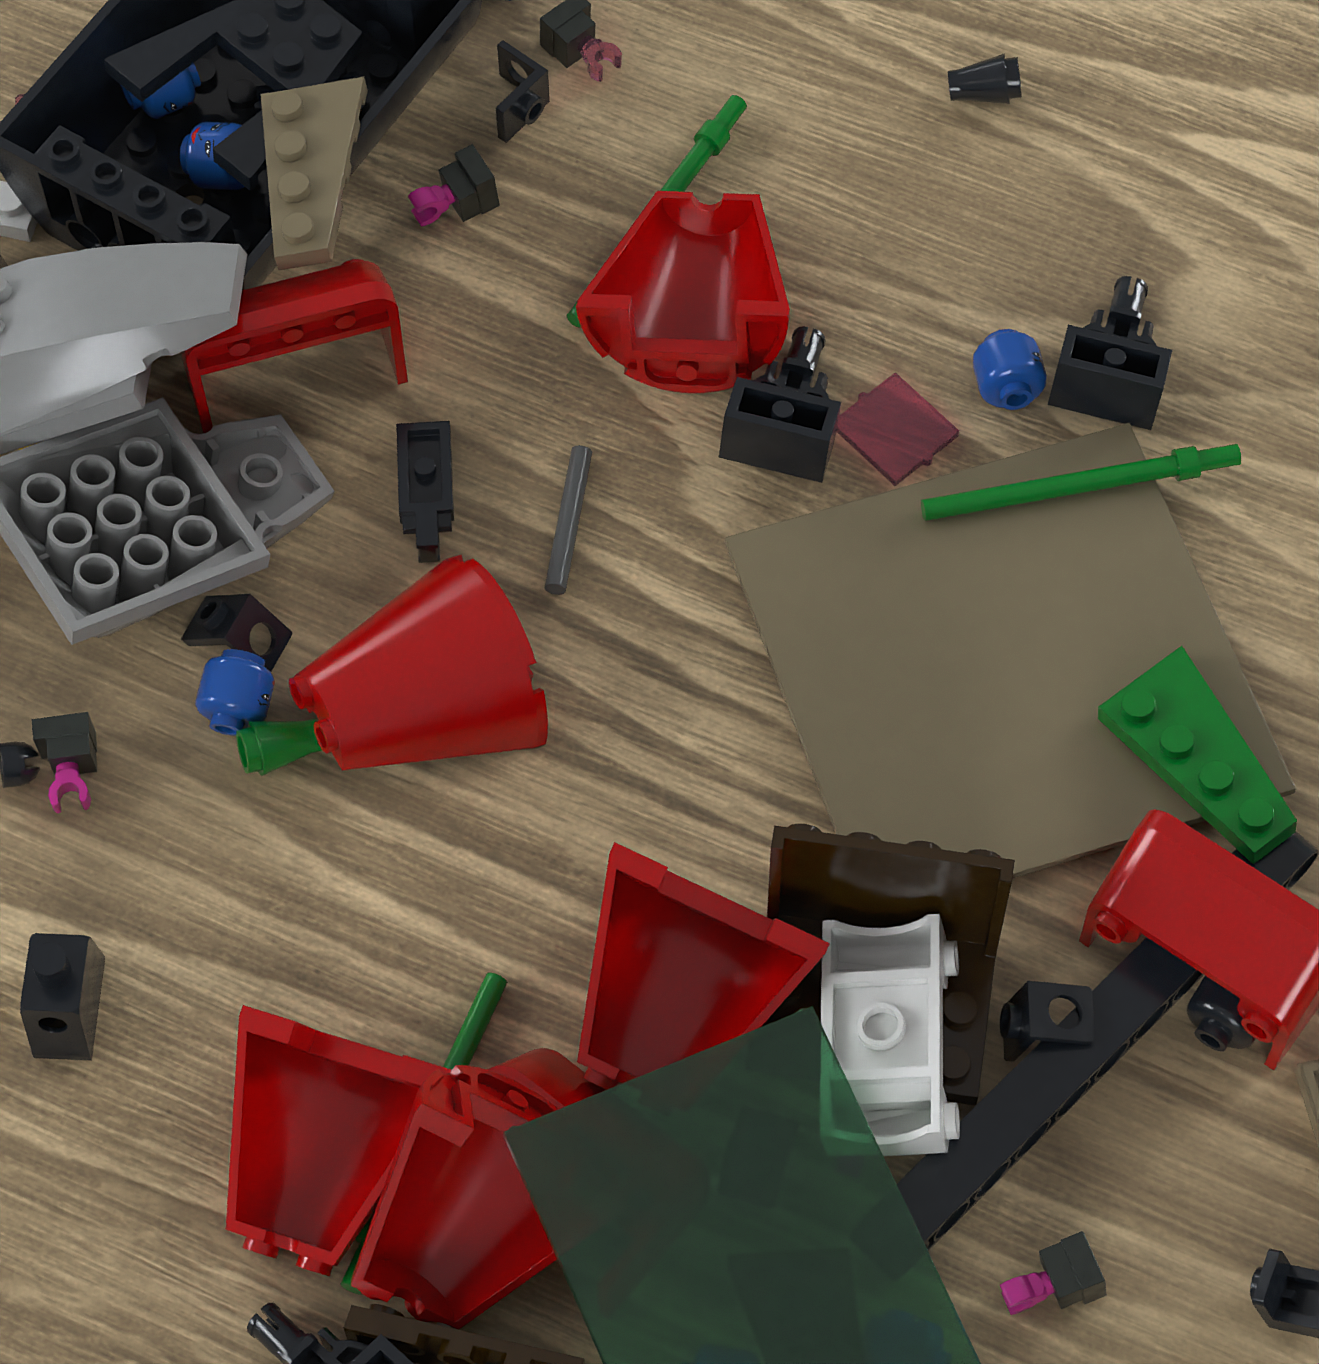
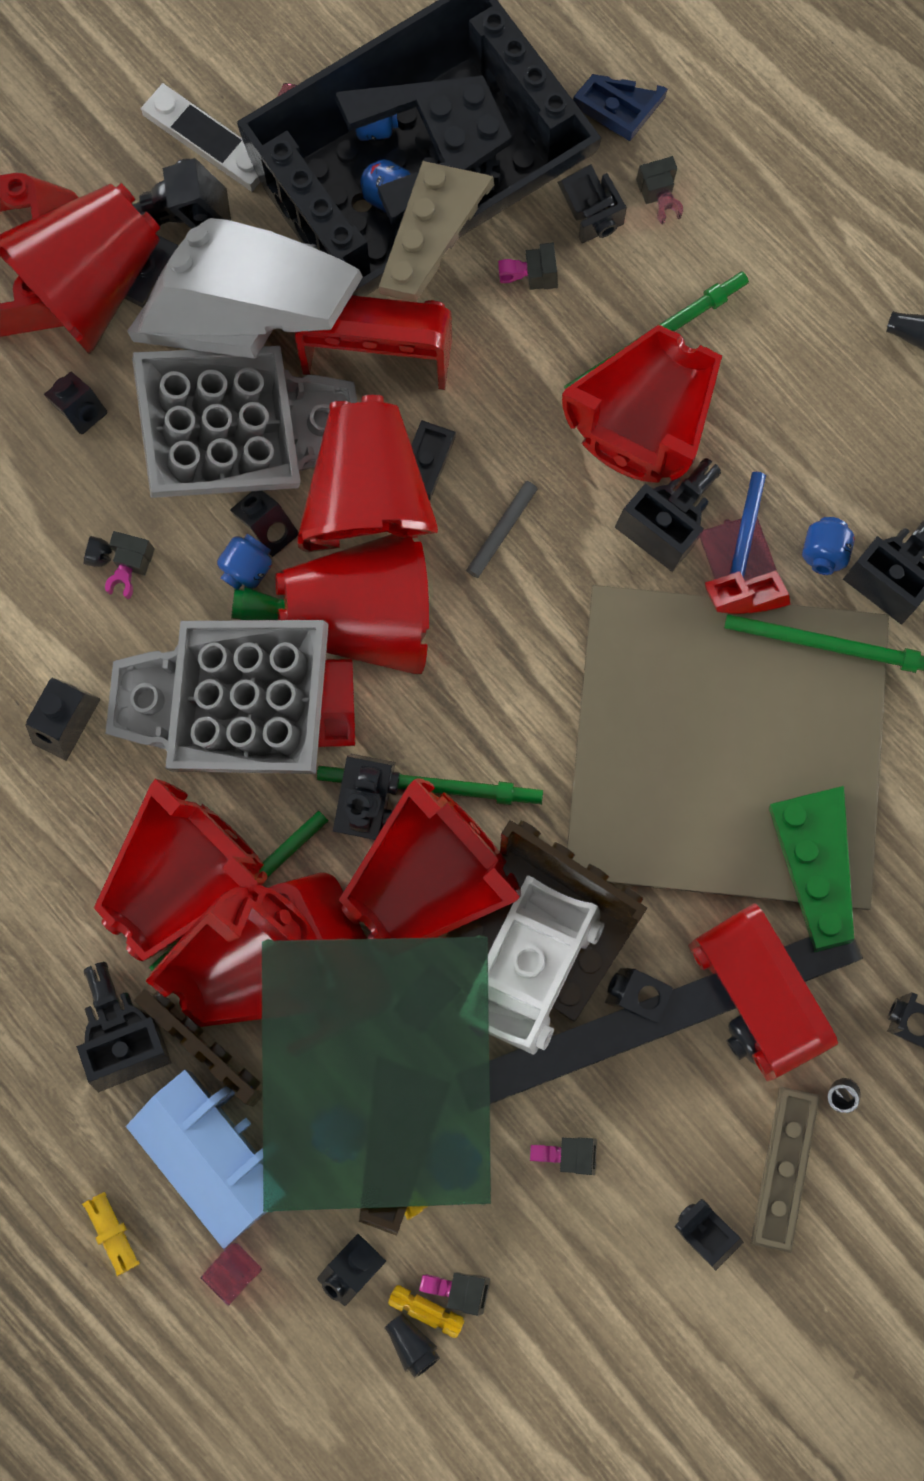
camera: 25 degrees right, 15 degrees up
(291, 866) = (227, 697): none -> light grey wedge
(356, 513) = (364, 479): none -> red cone
(447, 819) = (337, 708): none -> red slope
(482, 78) = (584, 193): none -> black bracket
(547, 921) = (365, 796): none -> black brick
(732, 846) = (503, 793): none -> green bar
(892, 388) = (748, 523): none -> blue bar
(923, 472) = (739, 596): none -> red slope

